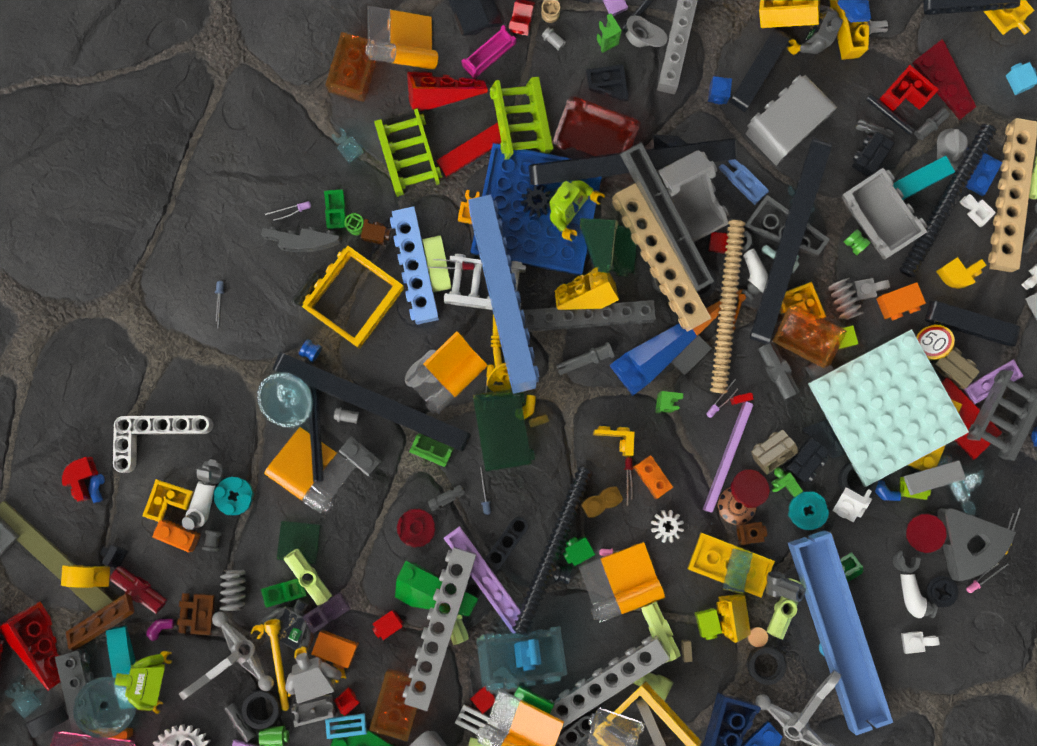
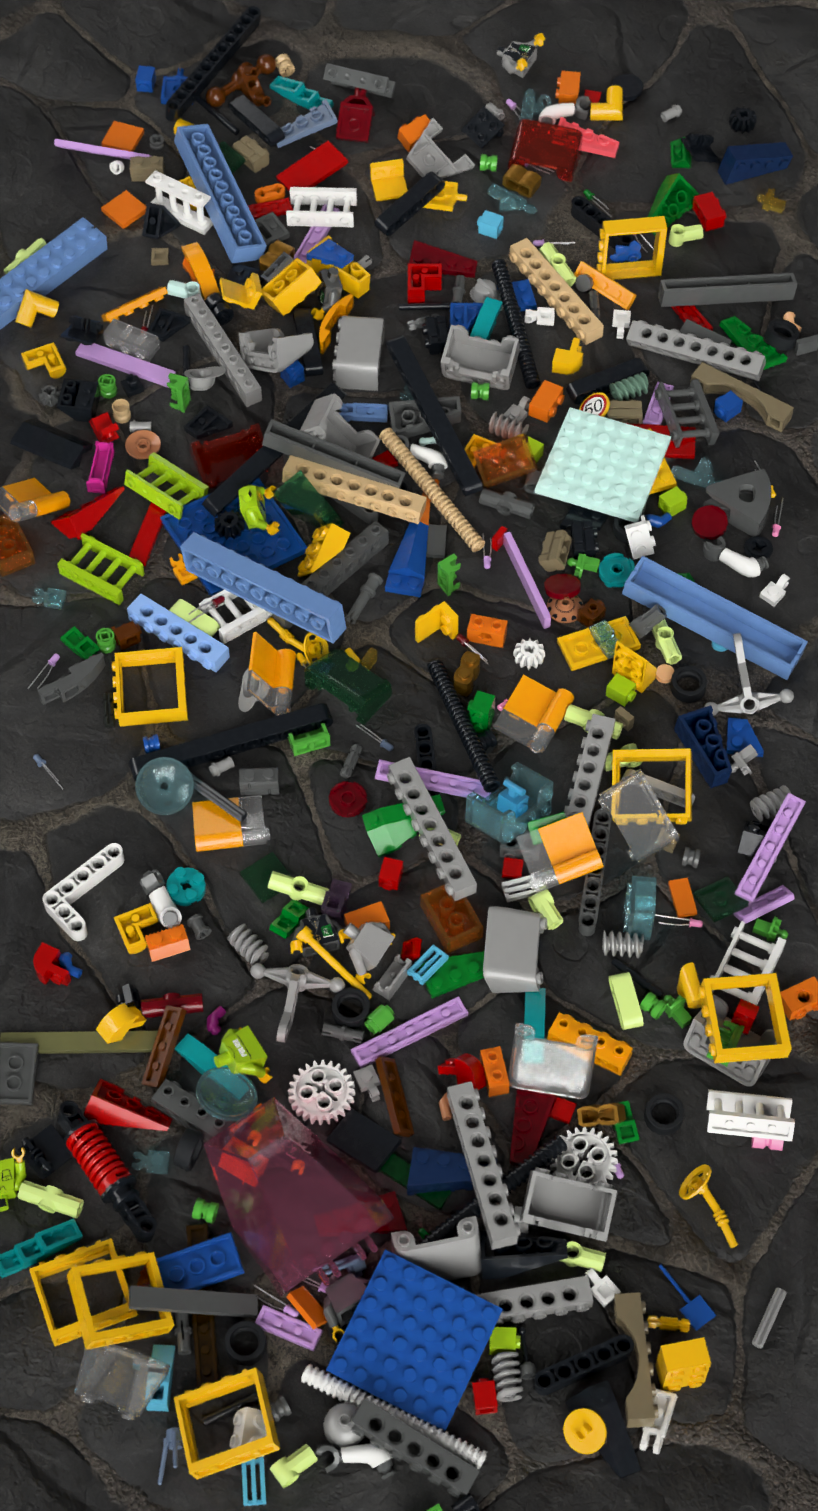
camera: 40 degrees left, 25 degrees down
(201, 616) = (239, 981): reddish brown plate -> none
(536, 51) = (142, 444): none -> nougat dish
(716, 57) = (271, 351): none -> light grey windscreen
(818, 59) = (340, 308): none -> light orange slope
(912, 154) = (464, 314): none -> blue wing
(934, 478) = (678, 480): light grey tile -> none
(983, 347) = (629, 386): none -> sand green piece

